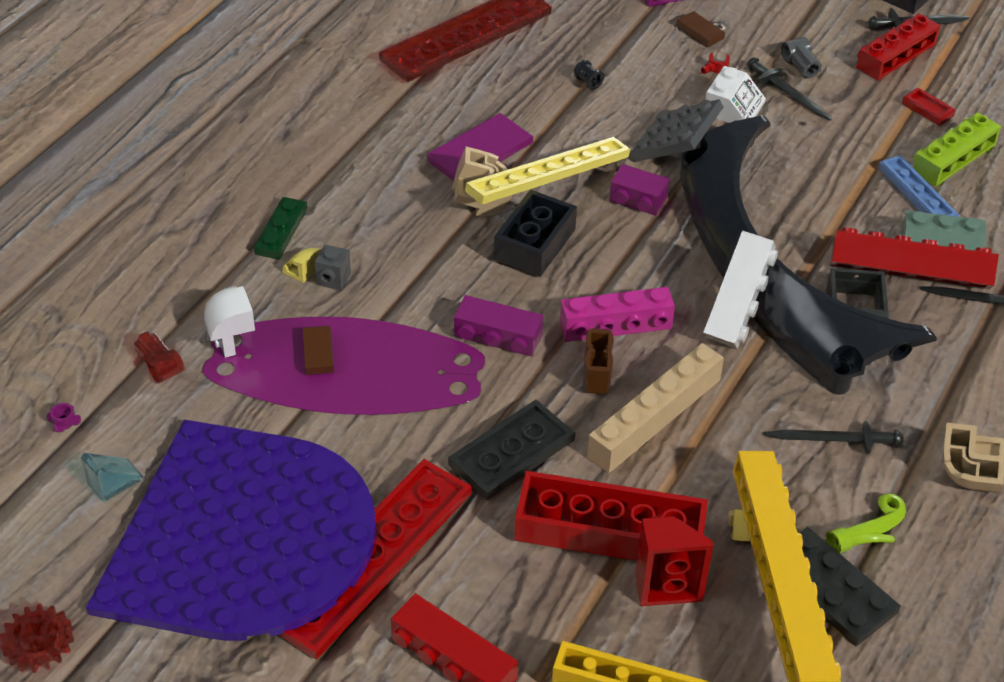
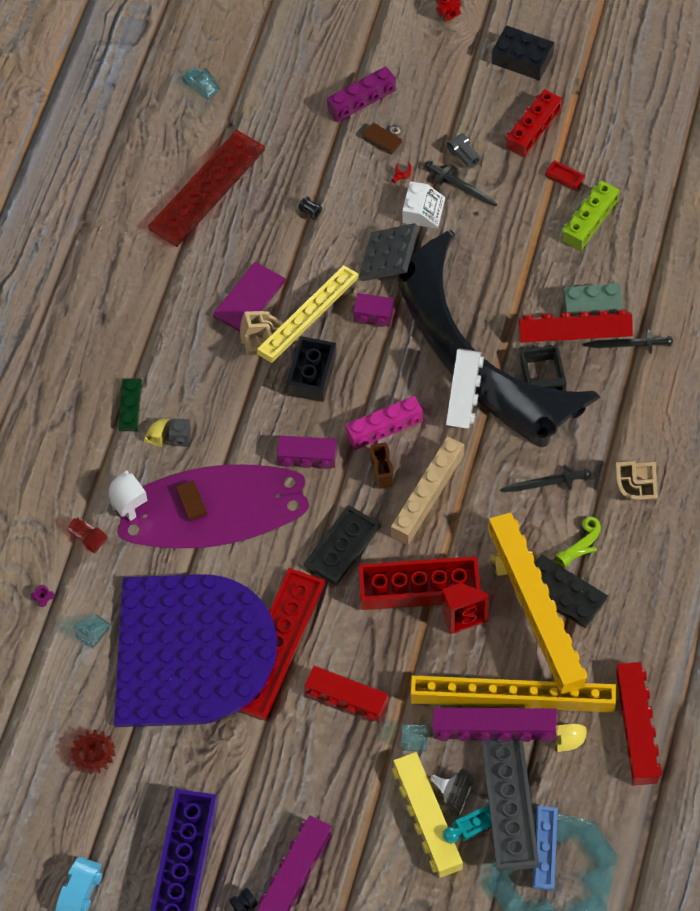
camera: 10 degrees left, 15 degrees up
(894, 21) = (529, 93): pearl dark grey sword -> none
(915, 187) = (569, 259): medium blue tile -> none

